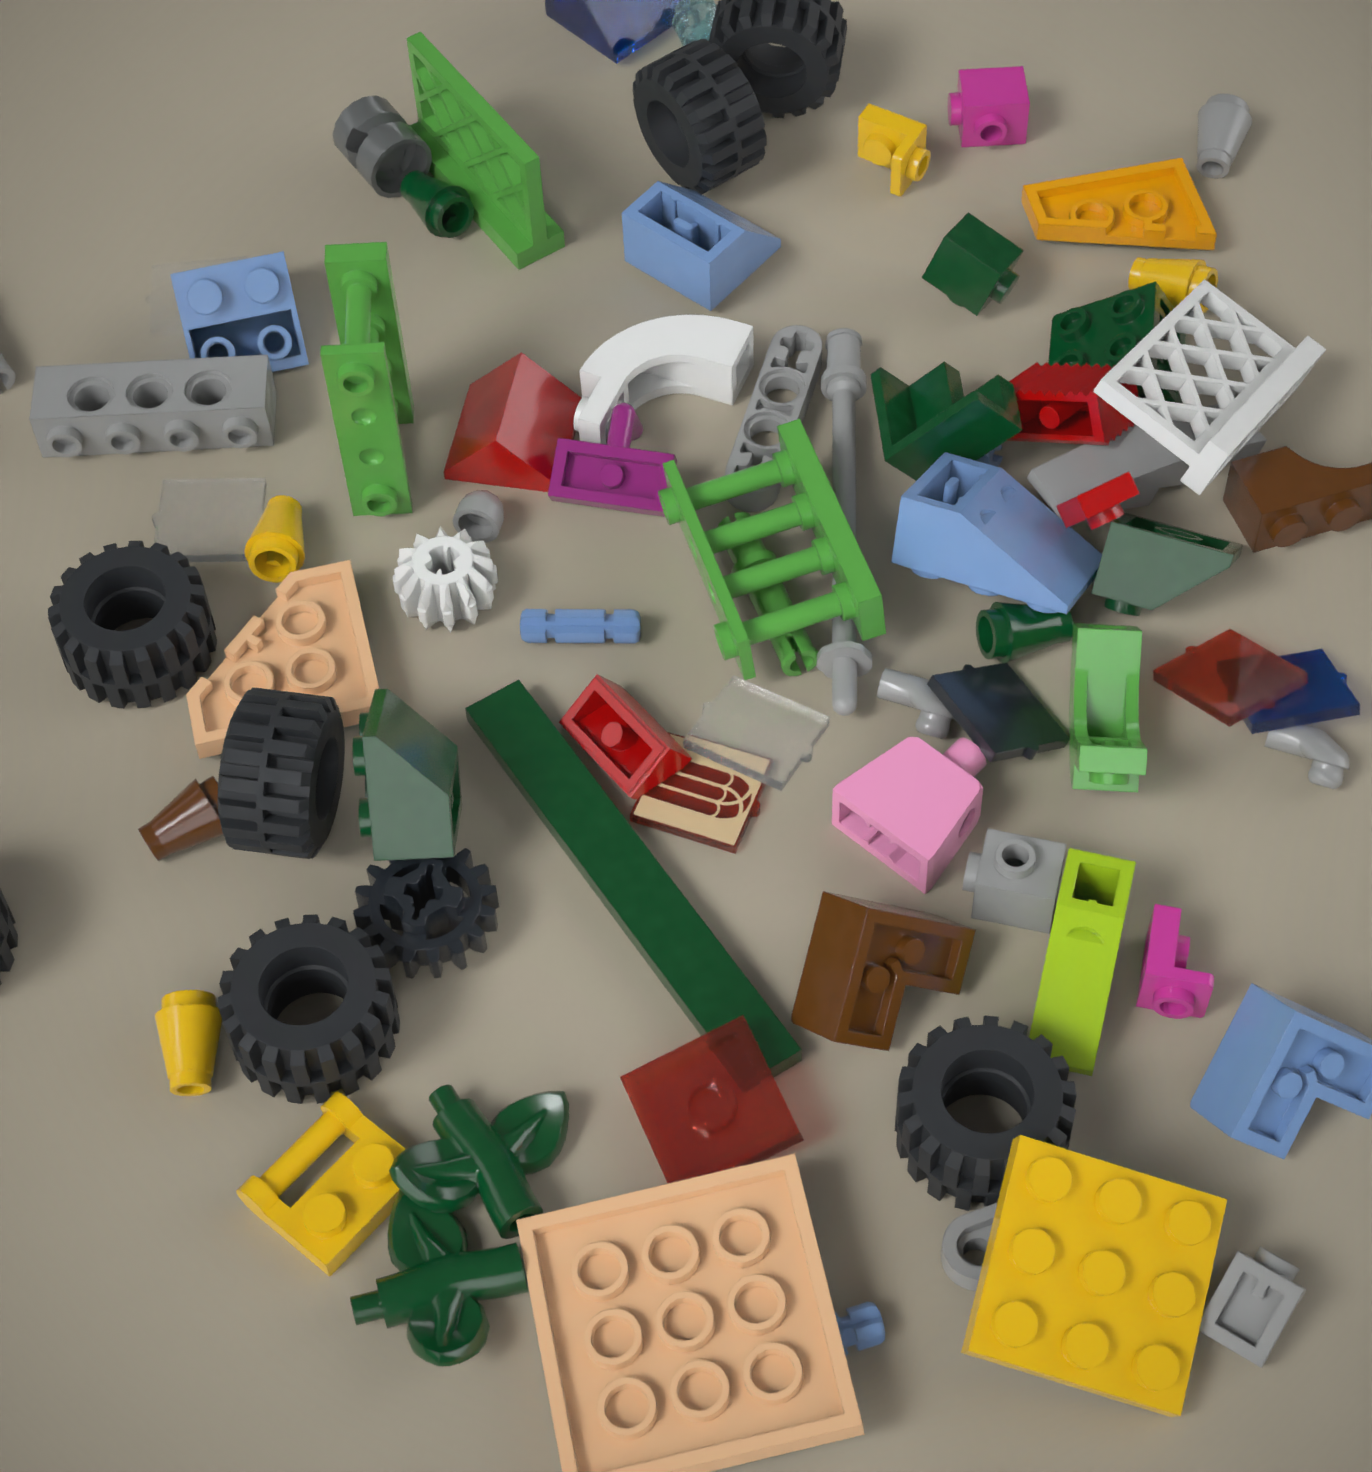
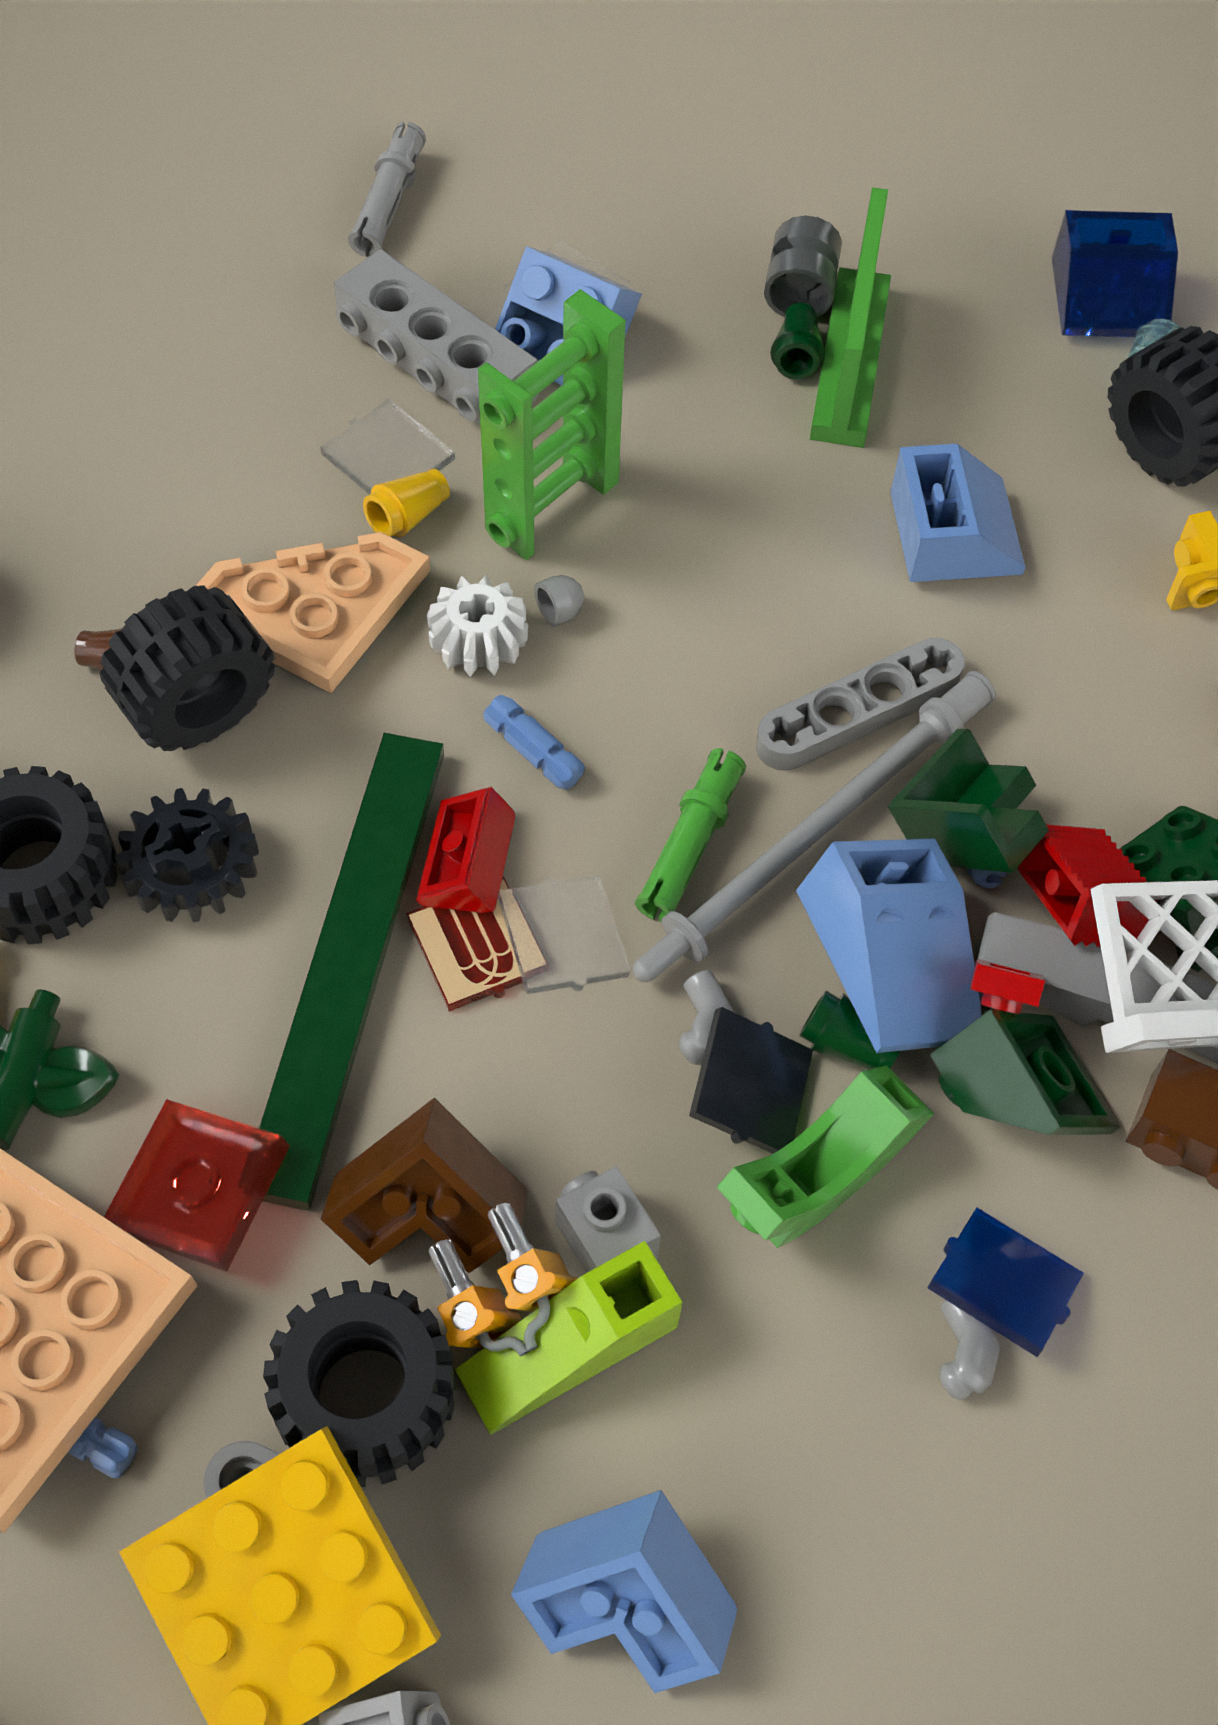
camera: 40 degrees right, 5 degrees up
(126, 587) = (233, 449): black tyre -> none
(409, 782) = (256, 747): slope -> none
(512, 427) = (661, 559): red slope -> none
(612, 472) = (684, 646): magenta plate -> none
(663, 358) = (810, 583): white arch -> none
(699, 116) = (1053, 417): black tyre -> none
(812, 507) = (754, 844): bright green fence -> none
(913, 806) = (603, 1097): bright pink torso -> none
(974, 265) = (1149, 708): dark green brick -> none
(1021, 941) = (482, 1314): none -> piece
(1164, 980) = (641, 1397): dark pink bracket -> none
(1230, 677) = (969, 1226): clear red piece -> none

